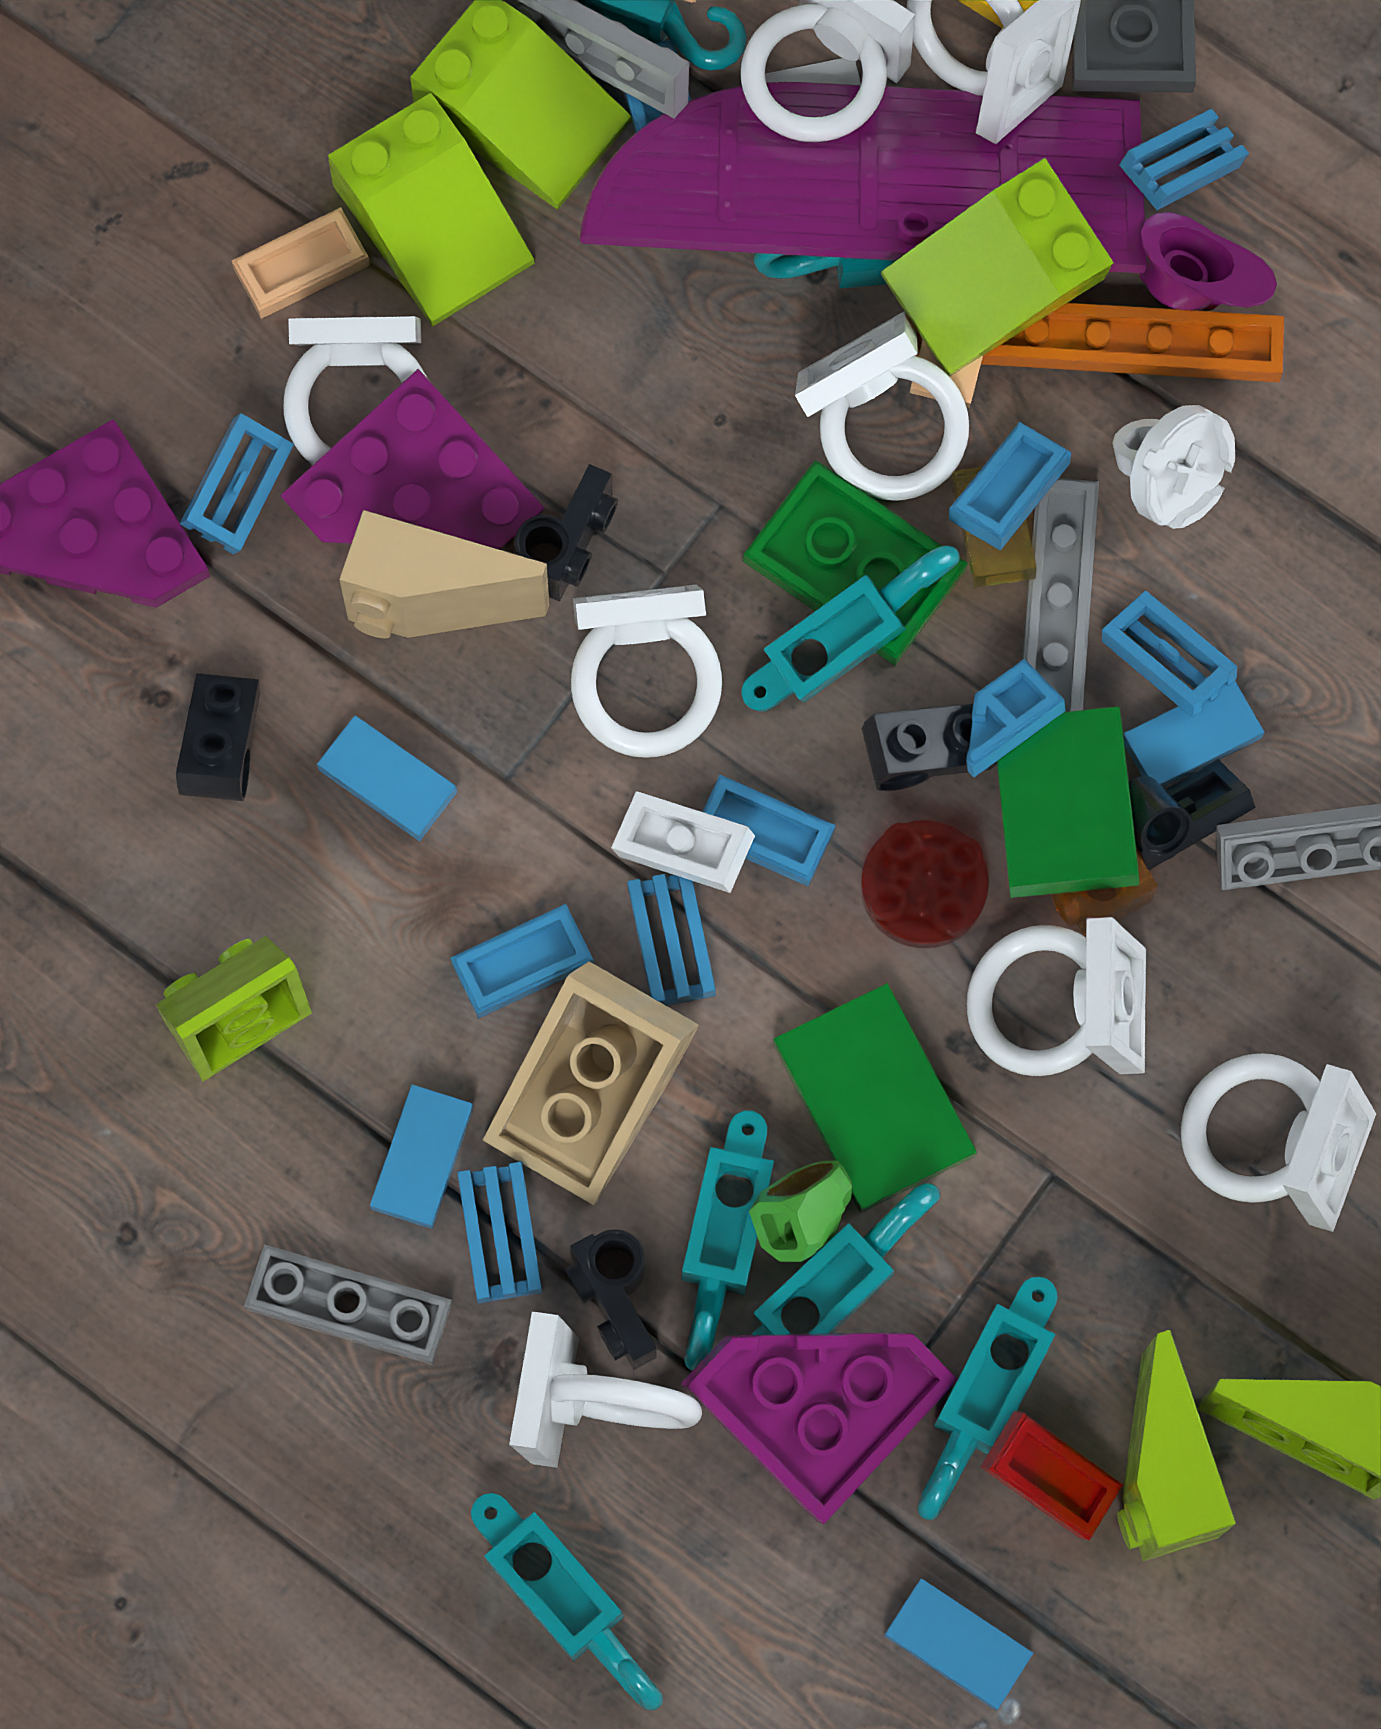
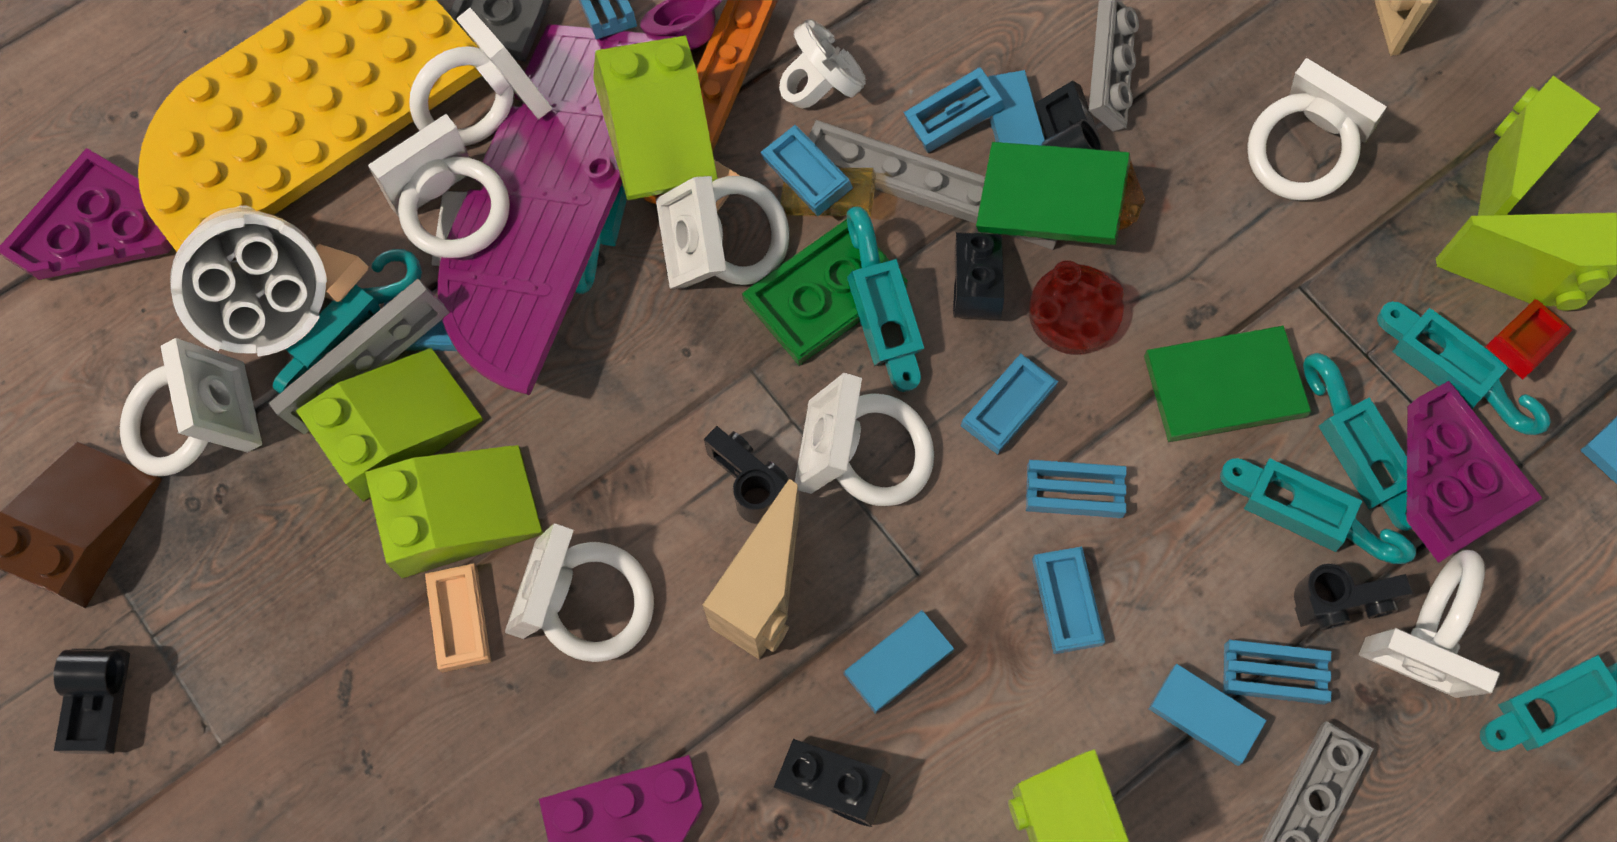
camera: 70 degrees left, 5 degrees down
(212, 528) = (623, 735): dark azure tile -> none
(416, 466) = (663, 574): magenta plate -> none
(589, 1081) = (1178, 570): tan slope -> none
(683, 841) = (1012, 455): white plate -> none
(801, 1210) = (1312, 446): bright green rock -> none
(1009, 713) = (978, 211): dark azure tile -> none
(1106, 998) = (1200, 207): white tile -> none

